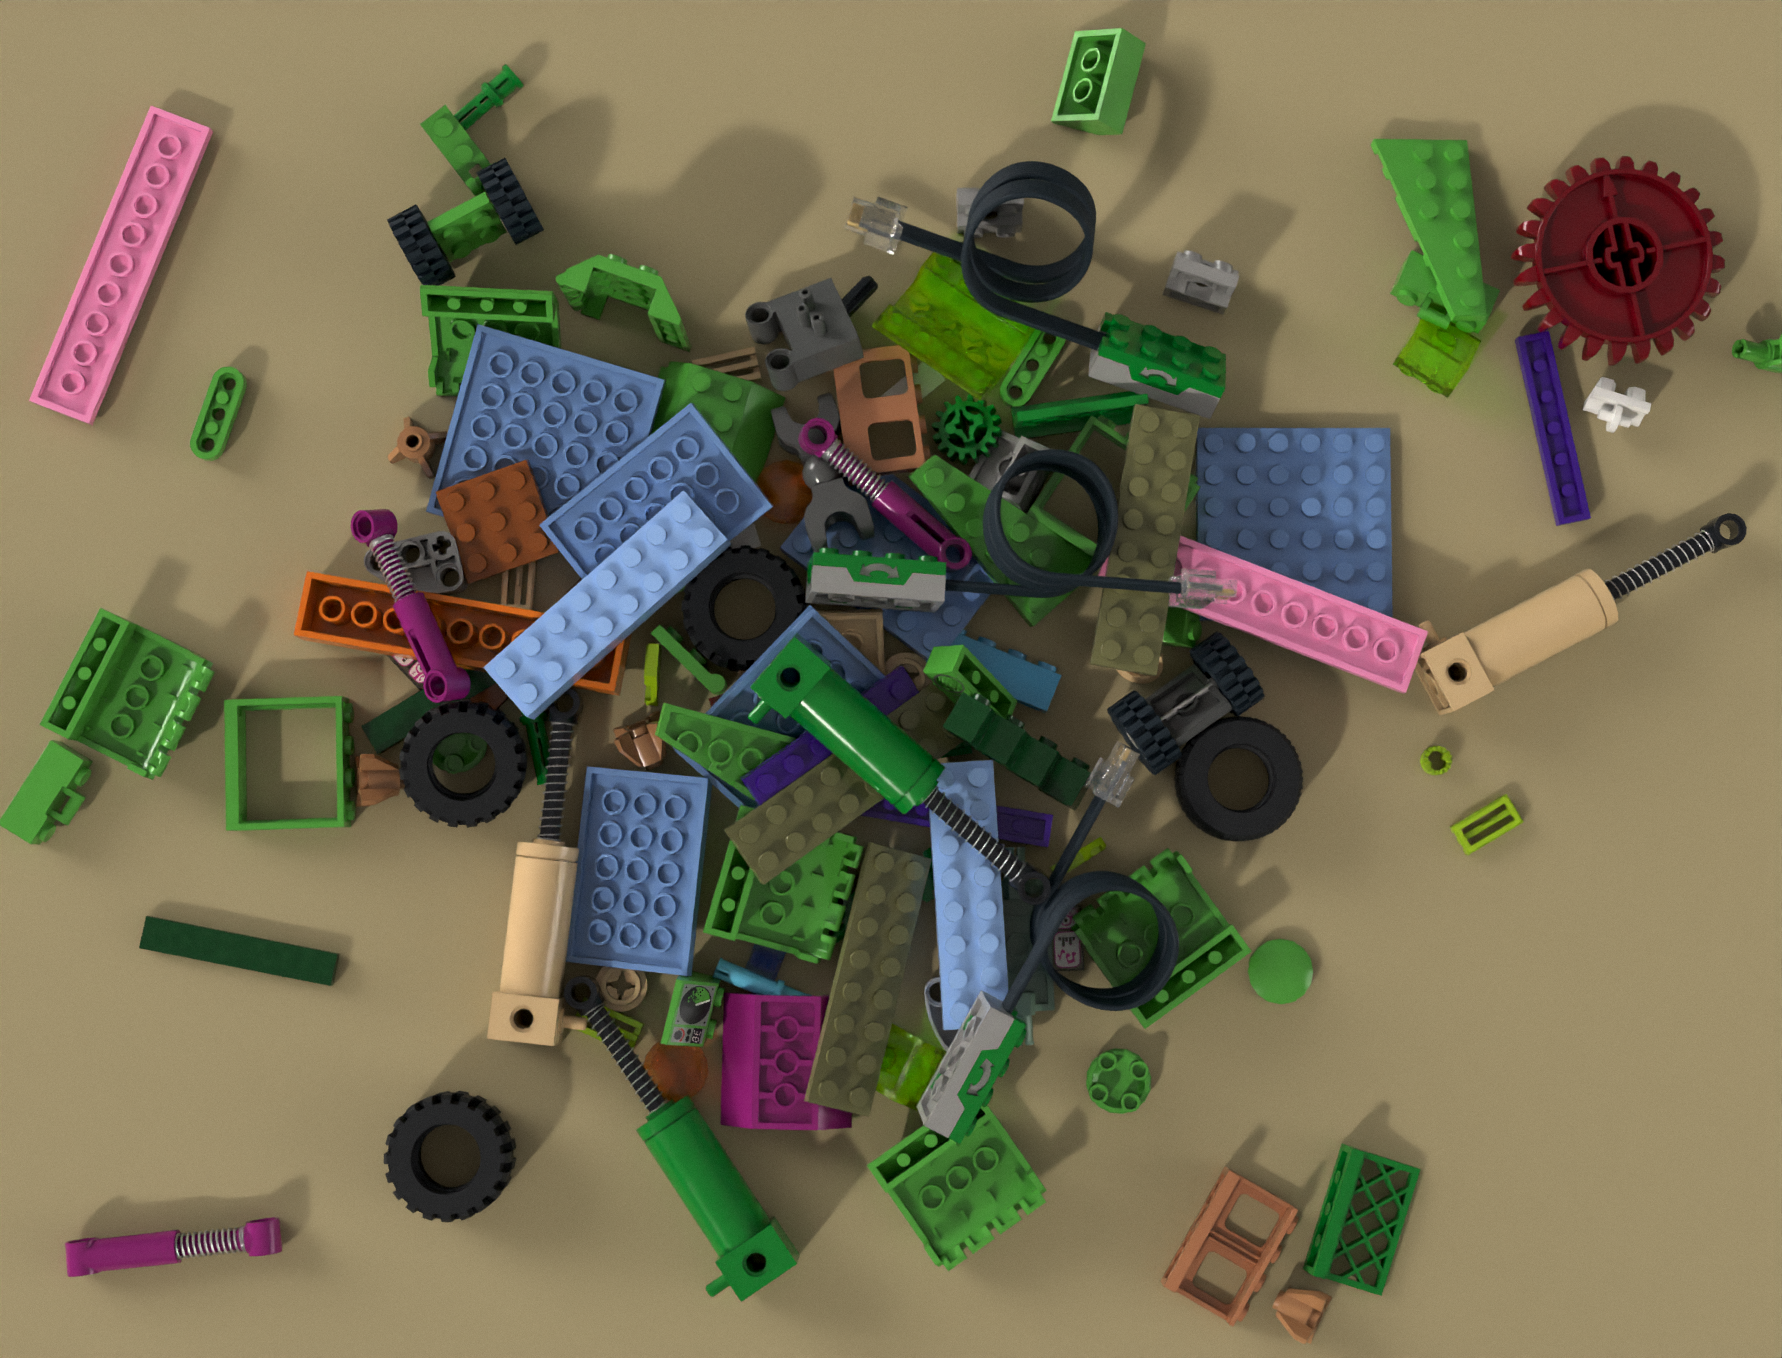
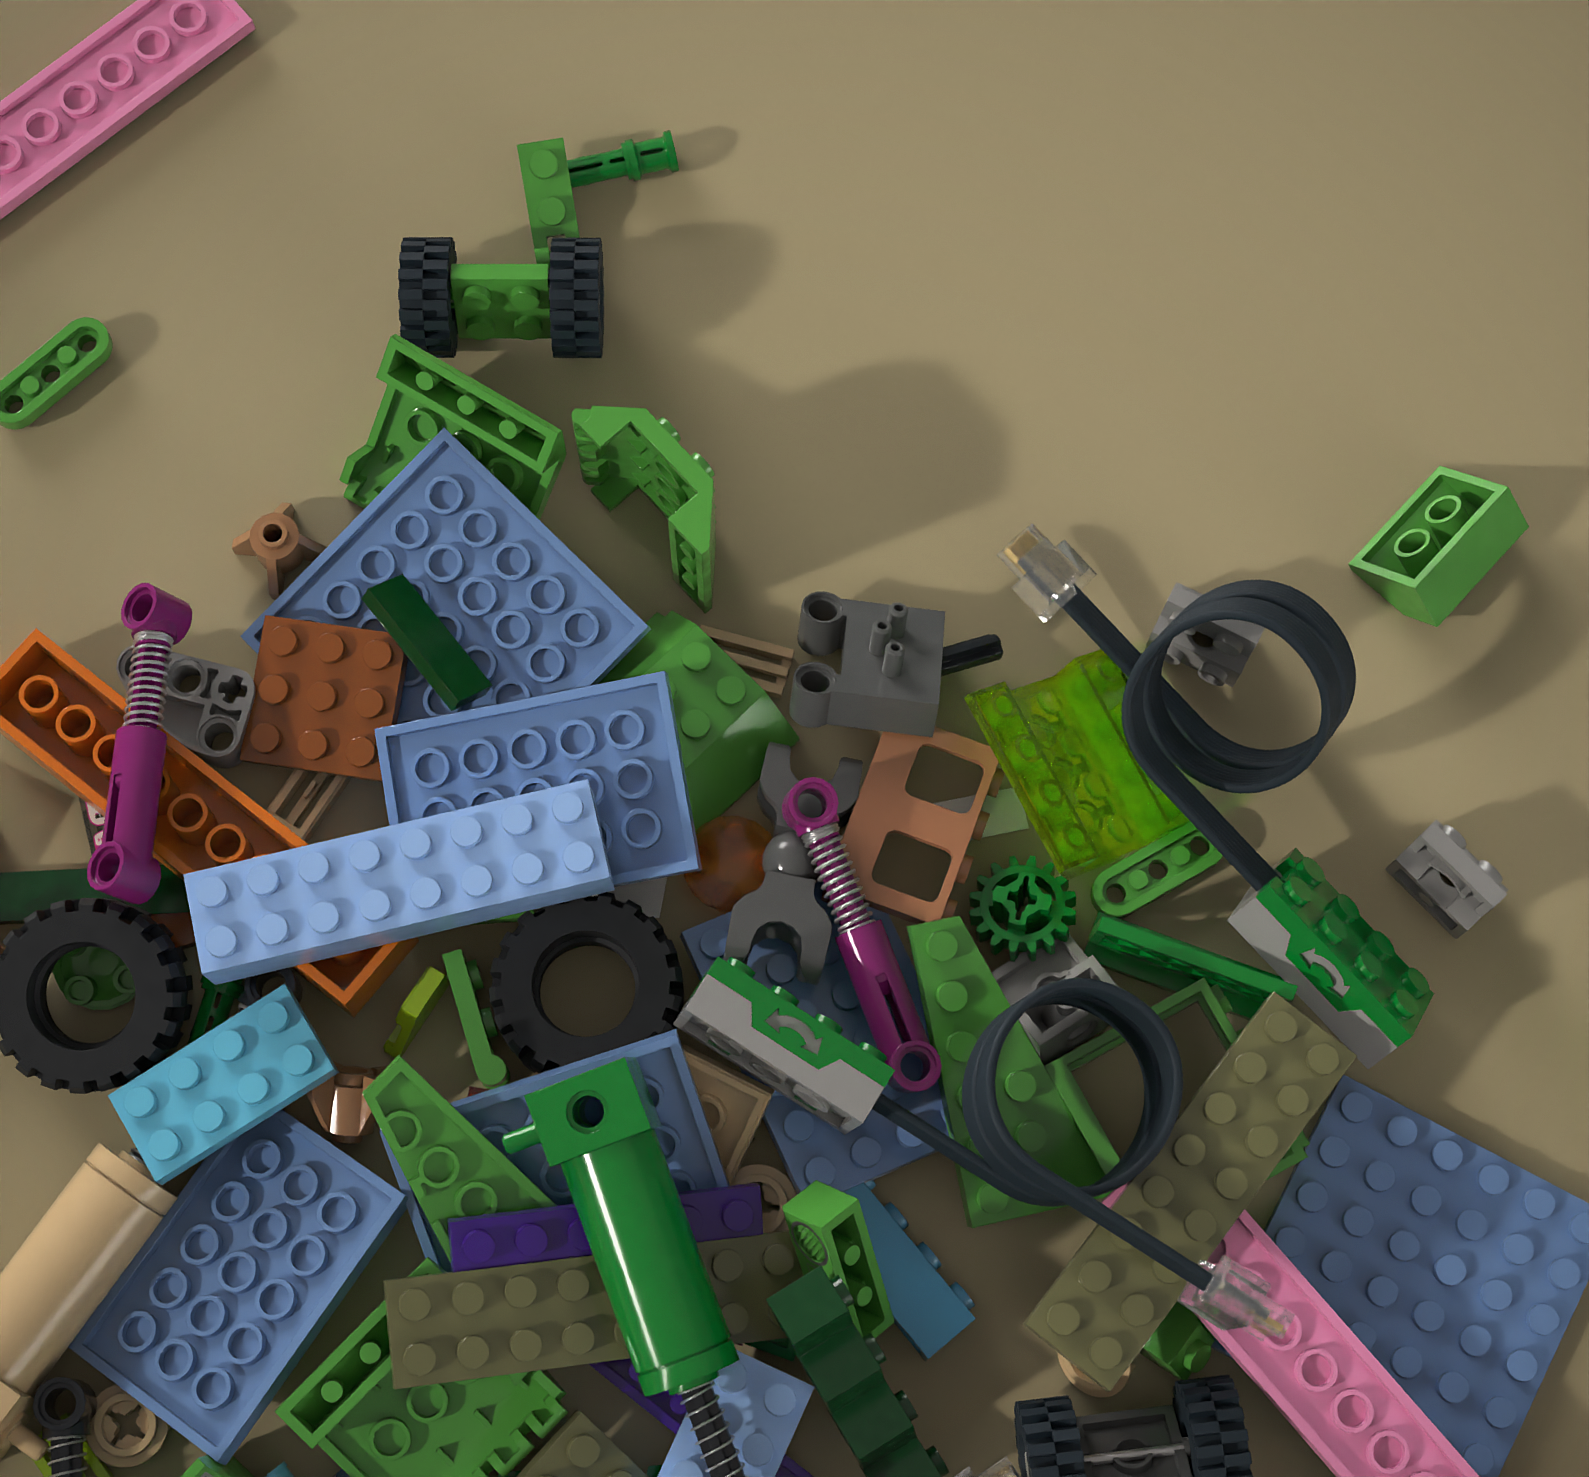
camera: 25 degrees right, 10 degrees down
(540, 457) = (426, 642): none -> dark green tile
(570, 771) = (223, 1084): none -> medium azure plate

